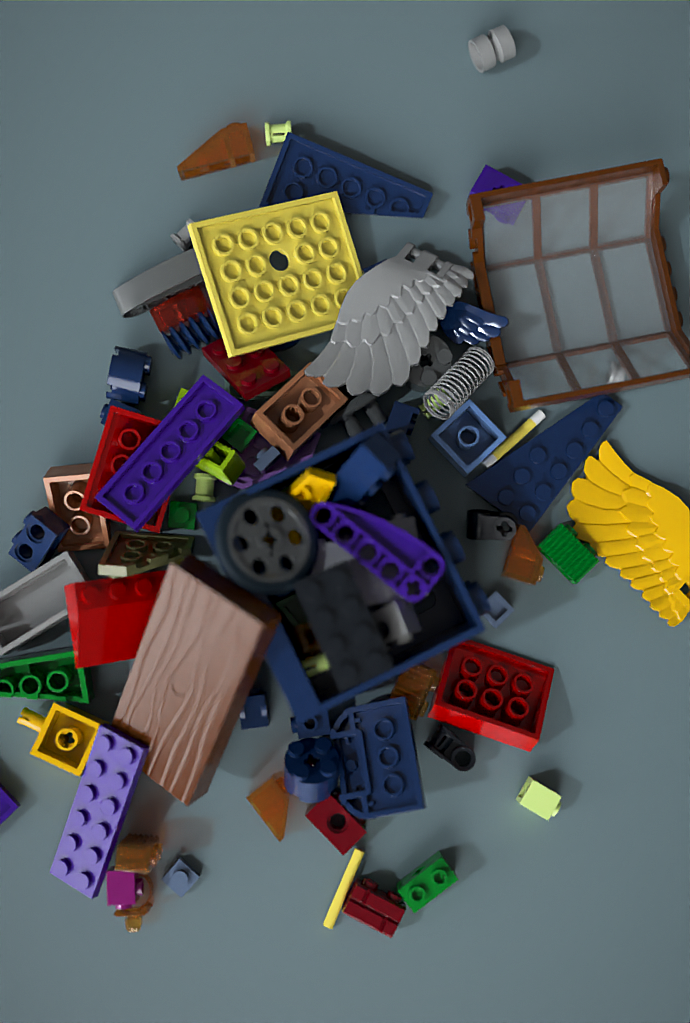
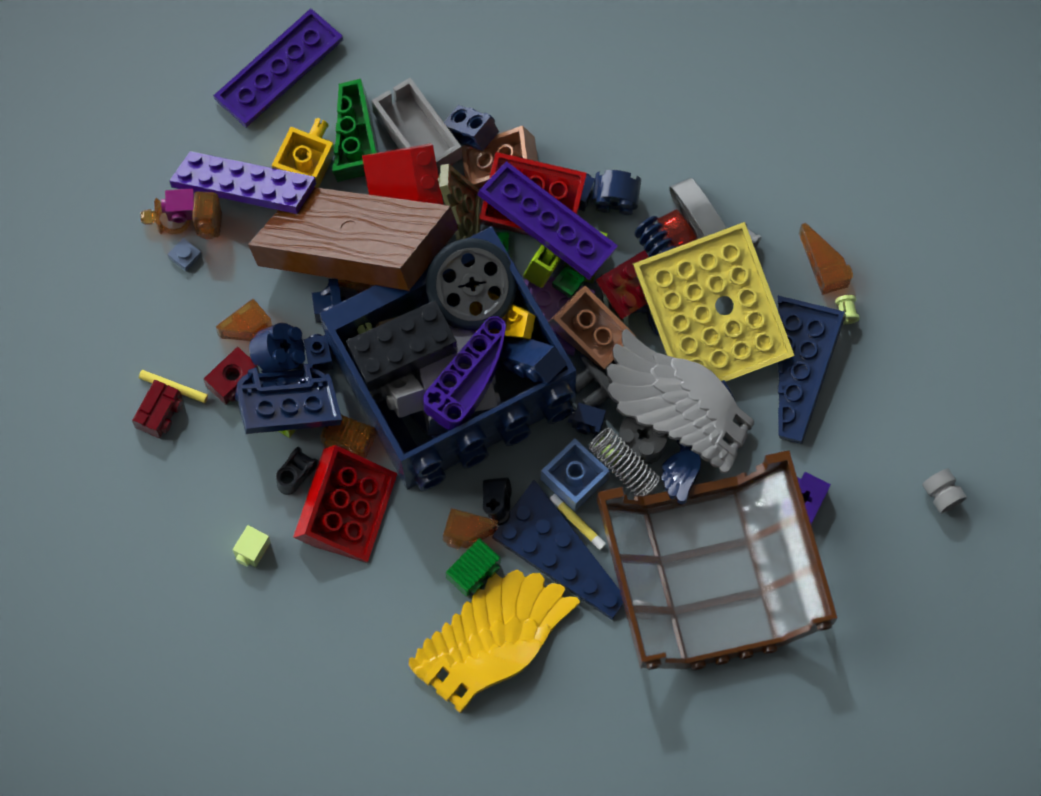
camera: 90 degrees right, 15 degrees down
(204, 487) = (521, 259): yellowish green bush -> none
(266, 459) = (547, 304): sand blue plate -> none
(426, 881) = (179, 451): green brick -> none
(499, 610) = (420, 507): sand blue plate -> none

